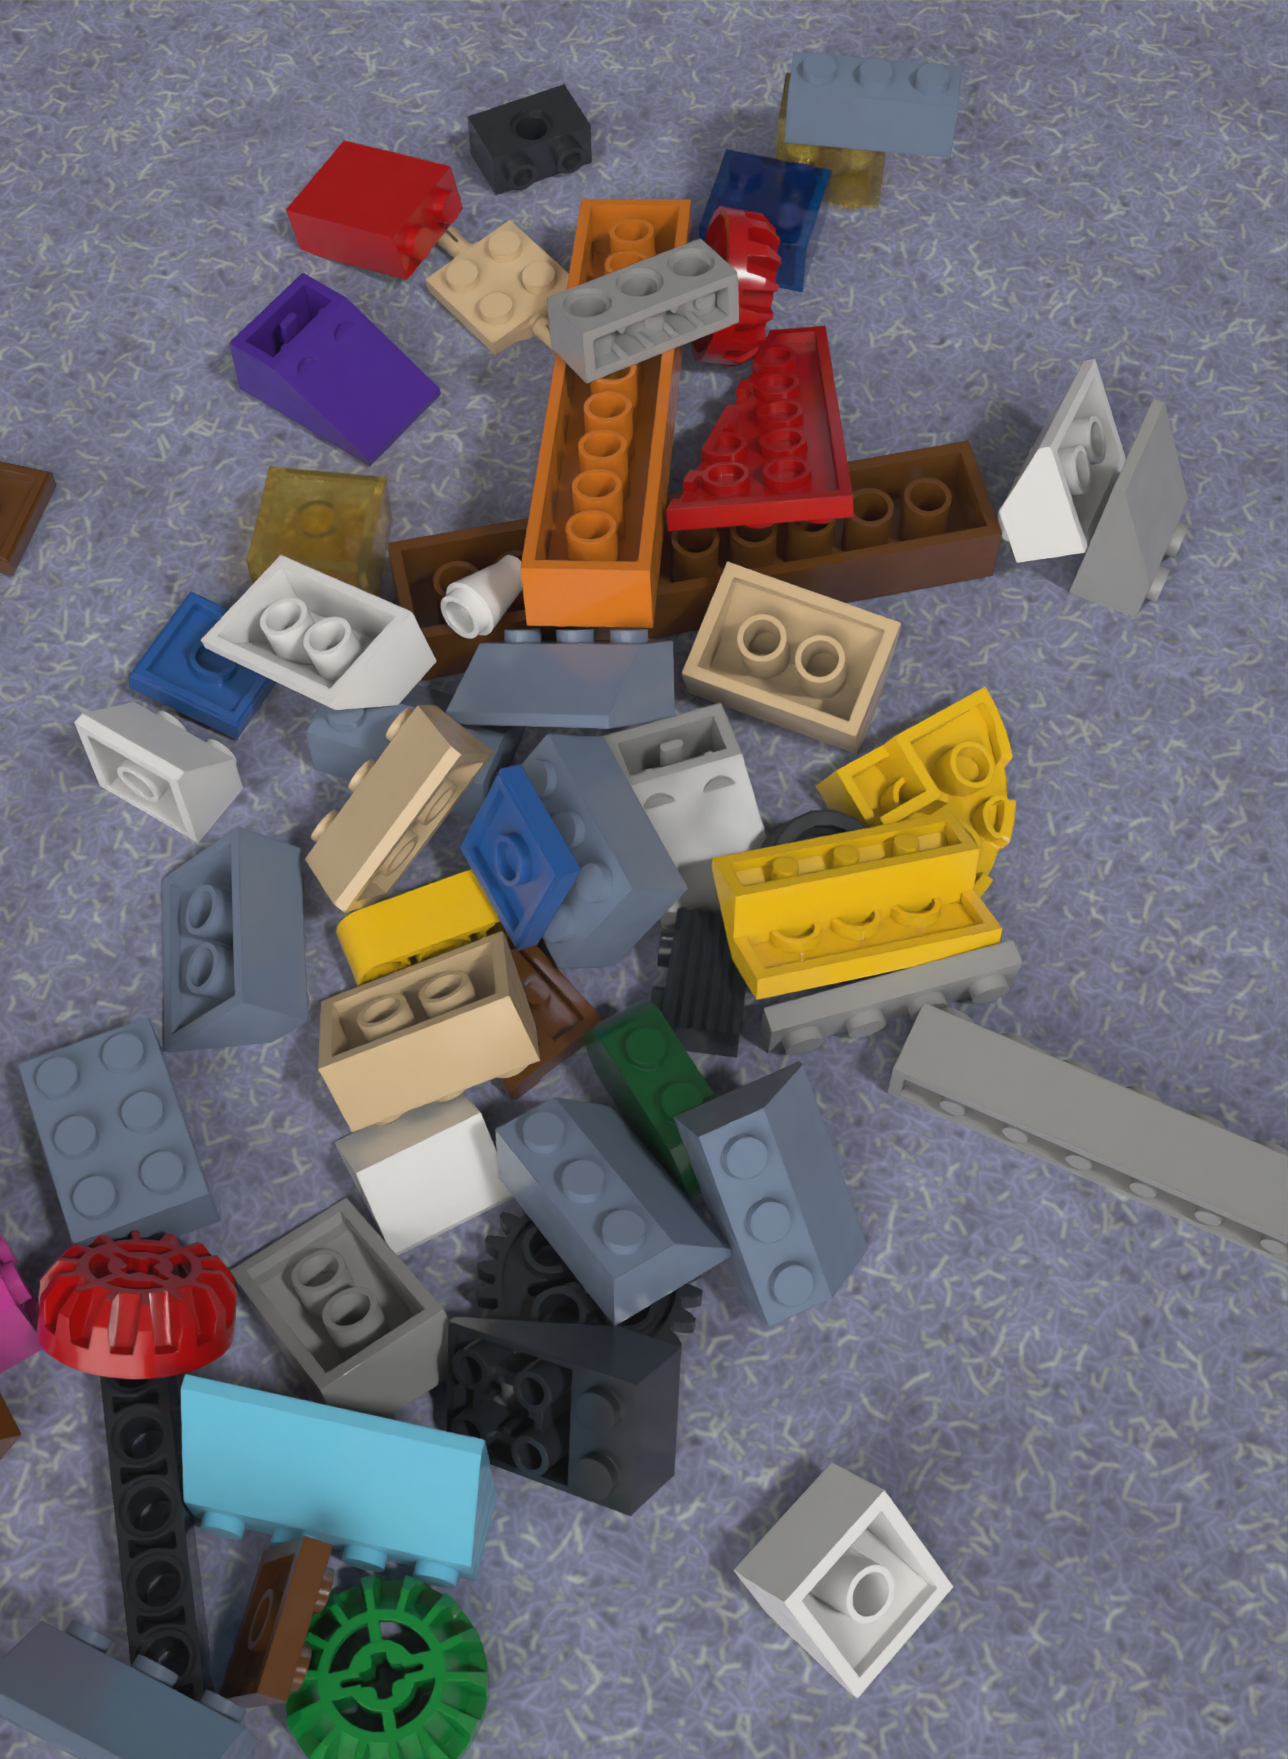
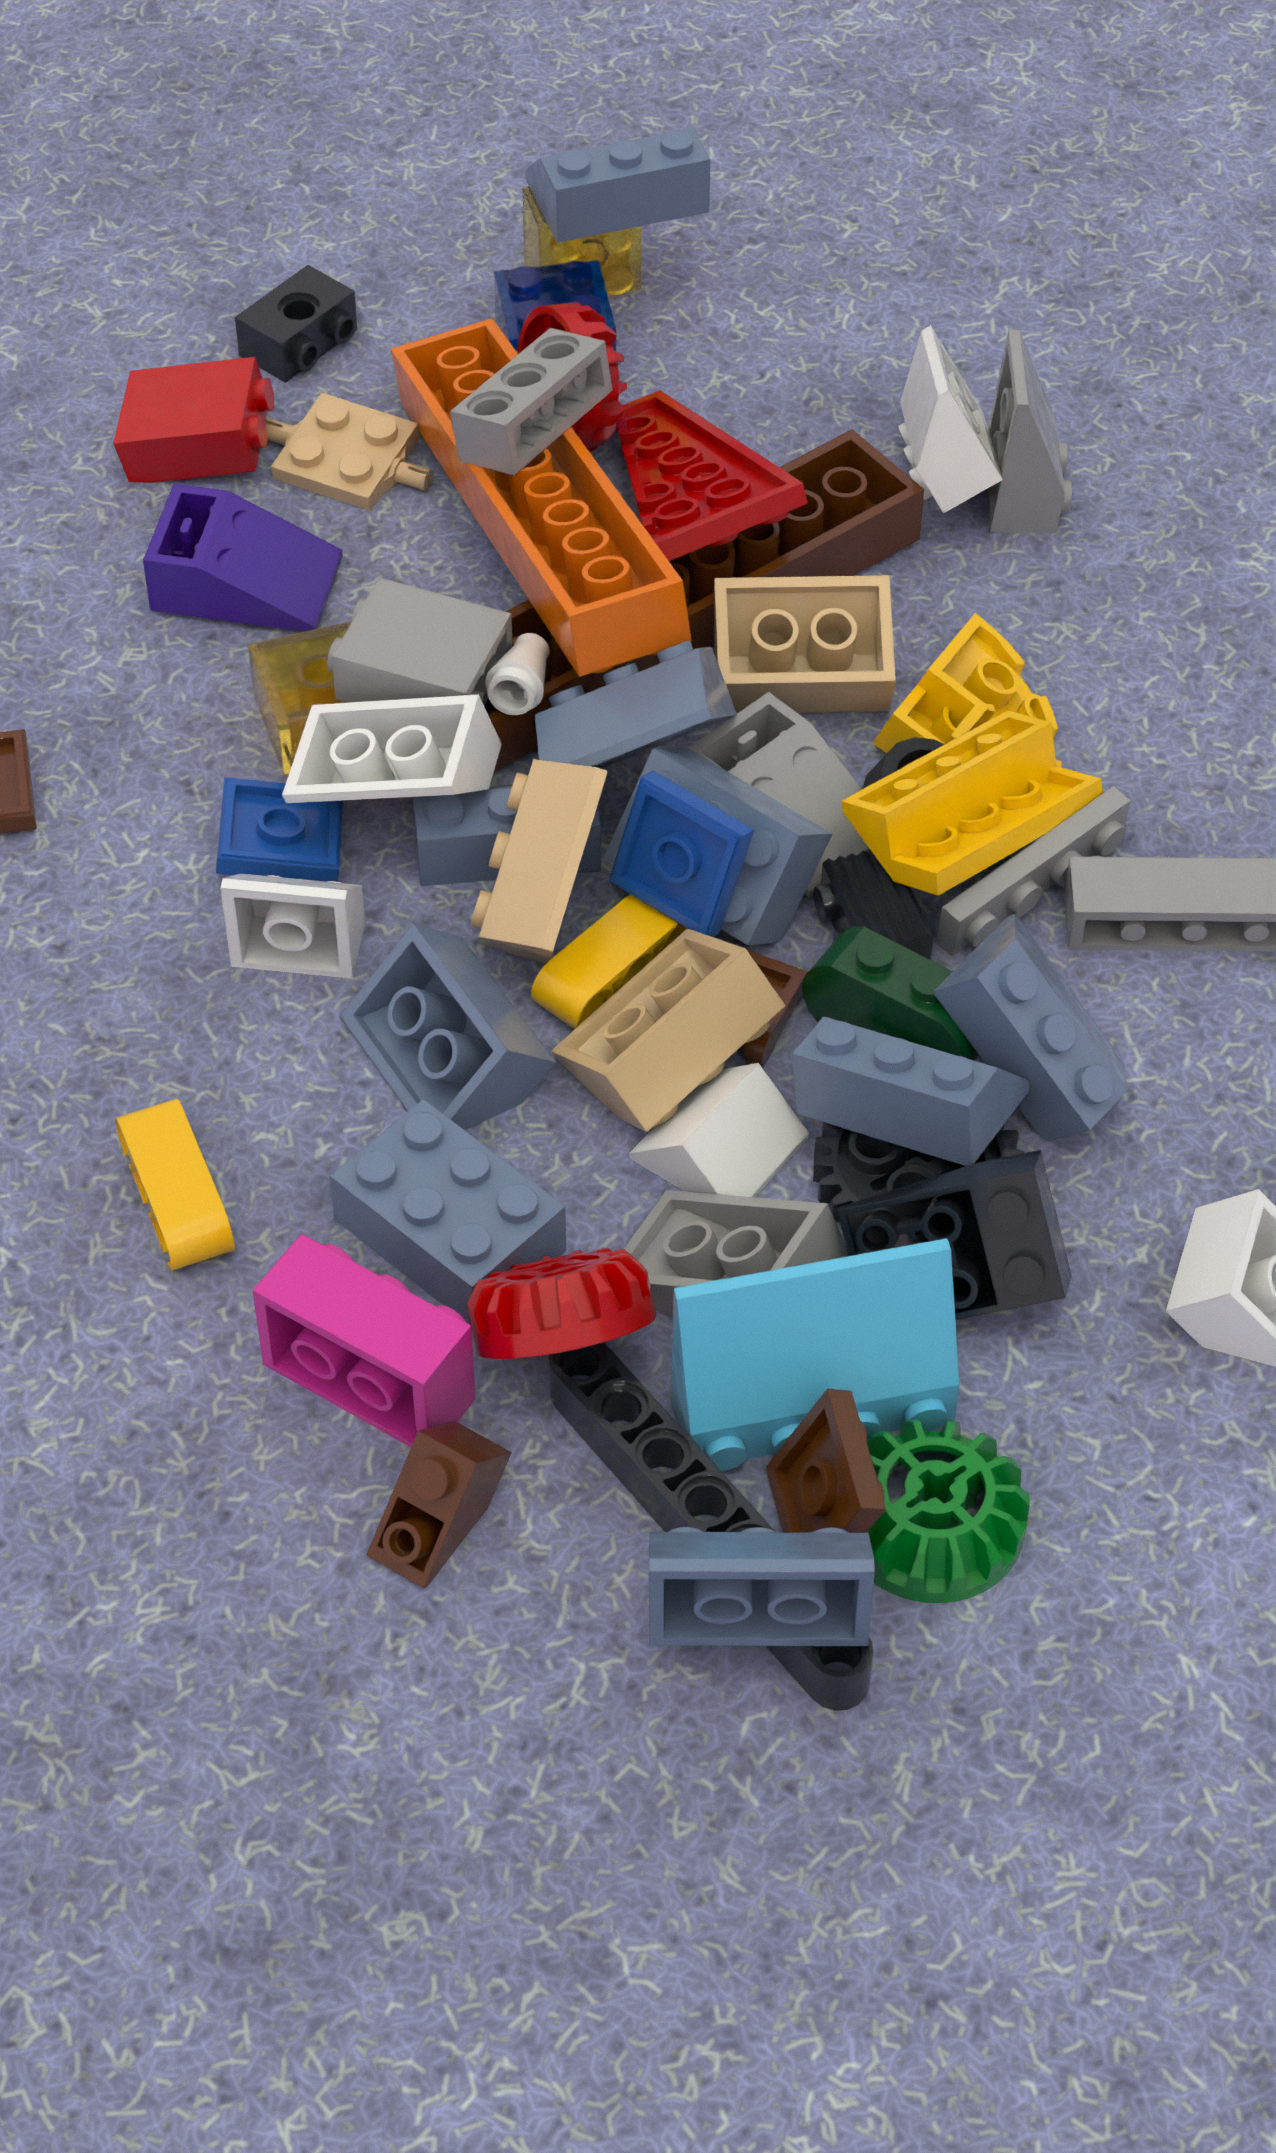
camera: 25 degrees left, 10 degrees down
(401, 536) = (417, 646): none -> light grey brick

